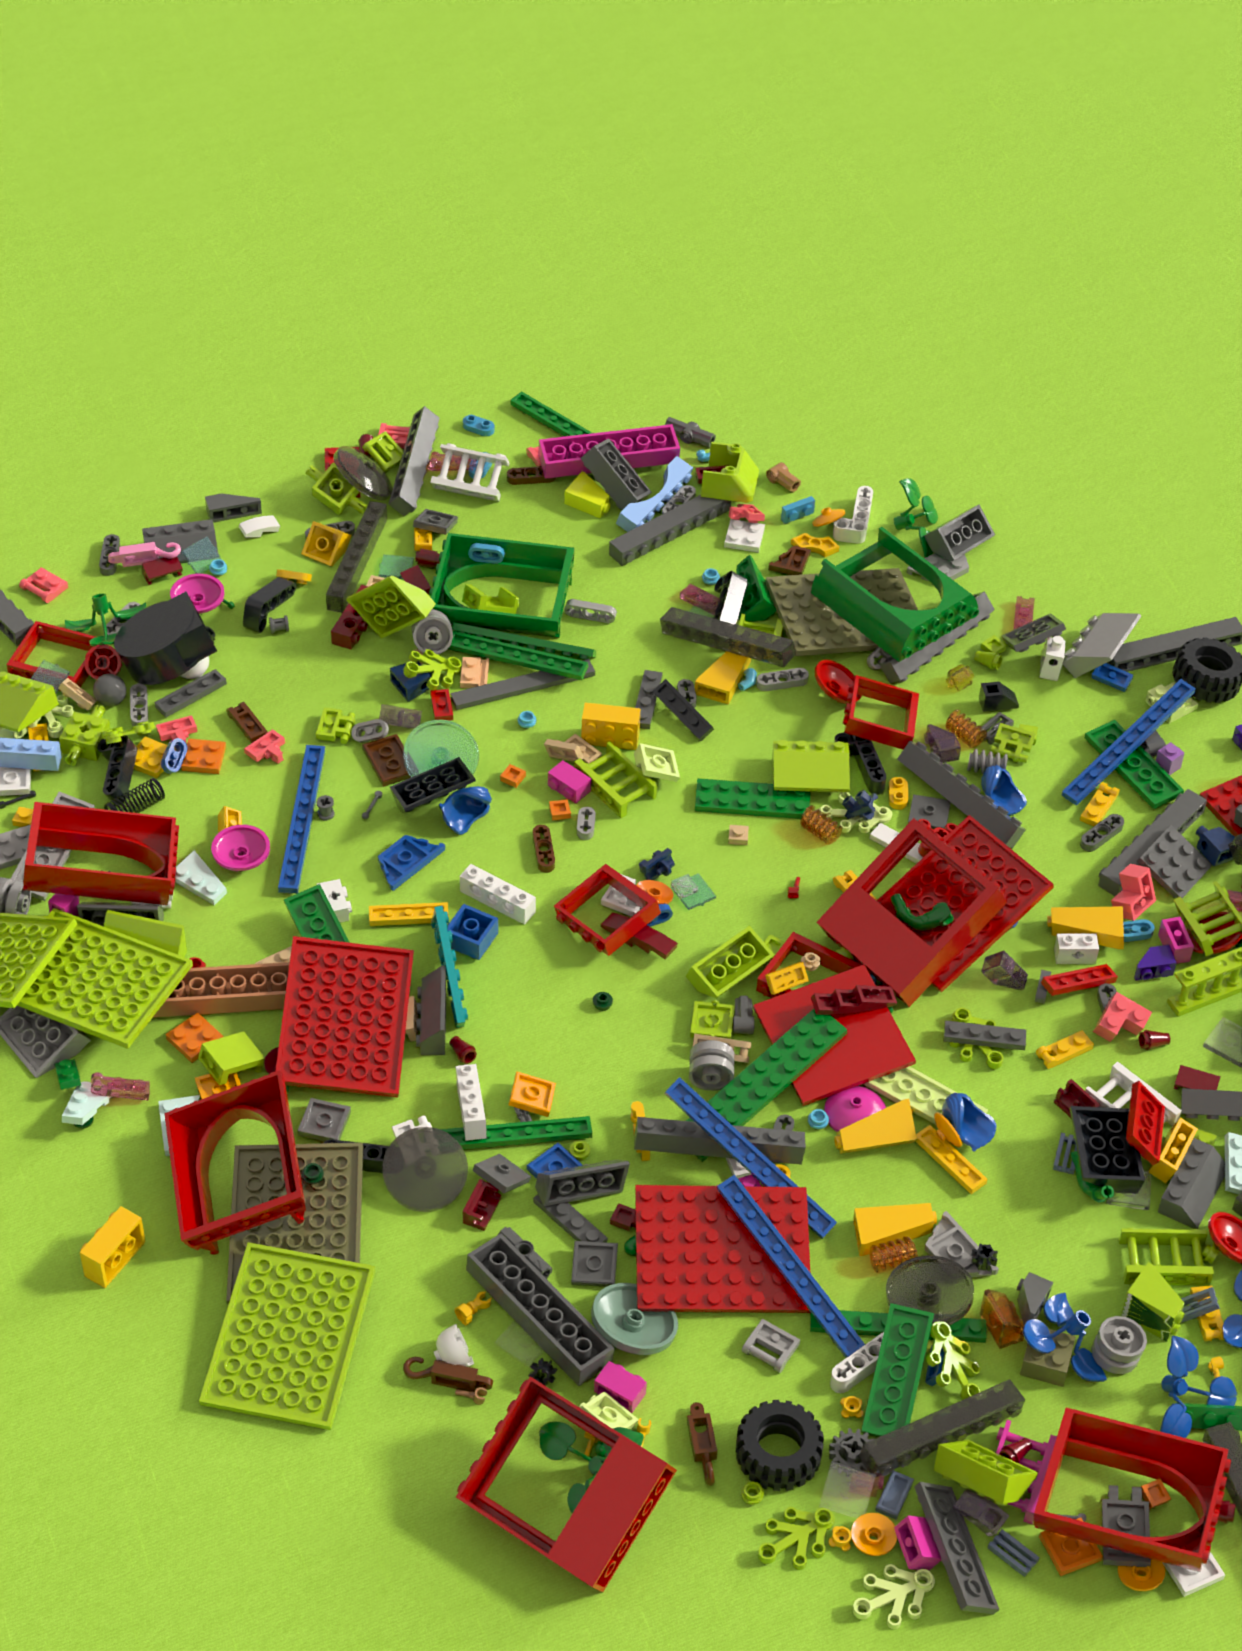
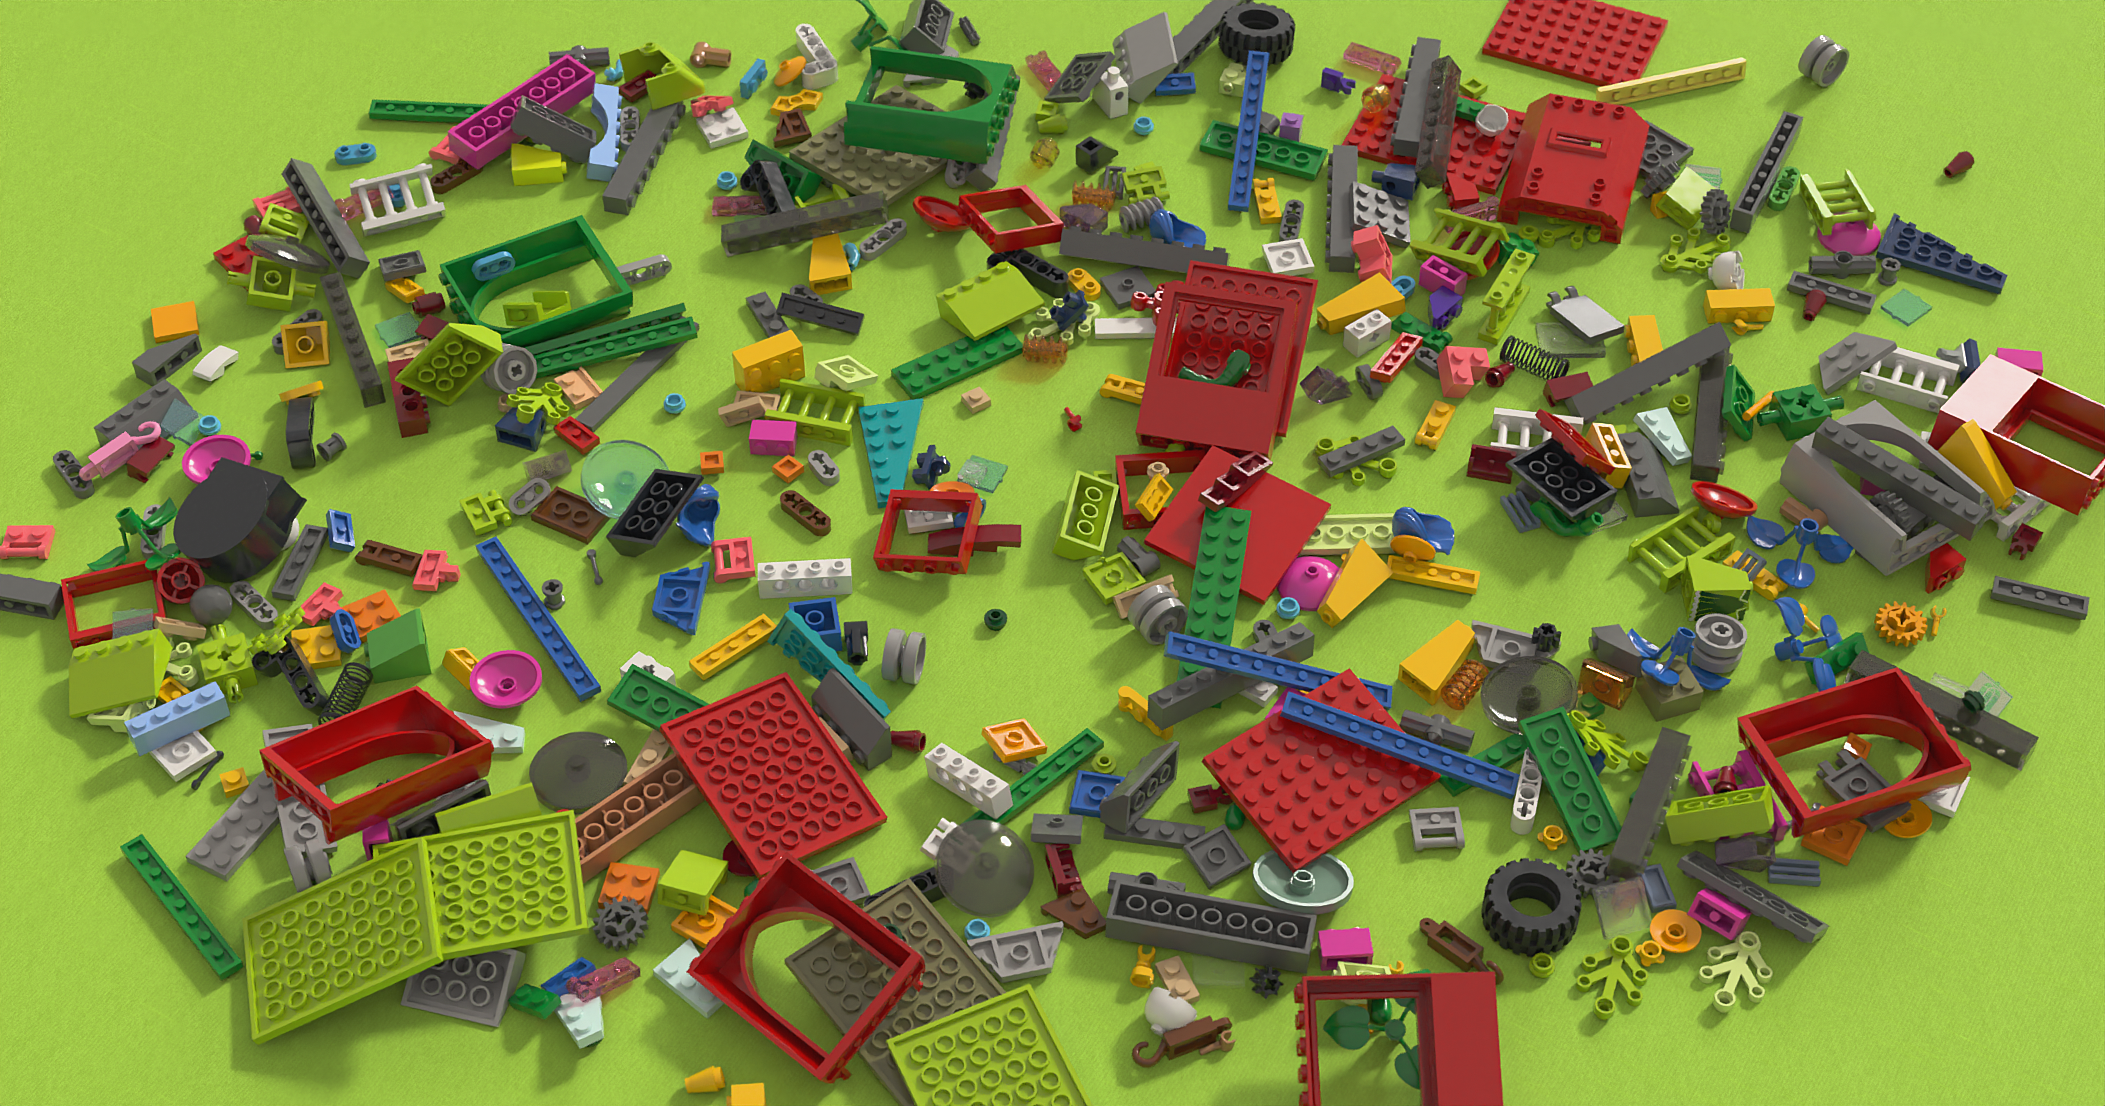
camera: 35 degrees left, 0 degrees up
(114, 1070) = (577, 969): none -> blue plate
(124, 1196) = (706, 1081): none -> yellow cone
(164, 1057) = (608, 923): none -> dark grey gear
(195, 788) = (398, 649): none -> bright green slope
(233, 685) = (340, 530): none -> blue plate
(234, 937) = (577, 771): none -> clear smoke dish
(260, 483) = (174, 321): none -> light orange tile
(385, 1210) = (976, 929): none -> medium azure plate
(400, 1243) = (1019, 952): none -> light grey wing
(462, 1239) = (1077, 913): none -> reddish brown wing
(470, 854) = (741, 559): none -> coral plate
(486, 1333) = (1177, 980): none -> tan plate
(494, 956) = (856, 638): none -> black piece
(508, 988) = (904, 656): none -> light grey wheel
(649, 830) = (889, 443): none -> teal wing
(840, 1275) = (1437, 730): none -> dark grey piece
(994, 554) = (969, 30): none -> dark grey axle
(1058, 696) = (1143, 126): none -> medium azure plate
(1071, 858) = (1288, 257): none -> white plate
(1122, 967) = (1432, 337): none -> green plate
(1199, 1059) = (1506, 356): none -> black piece

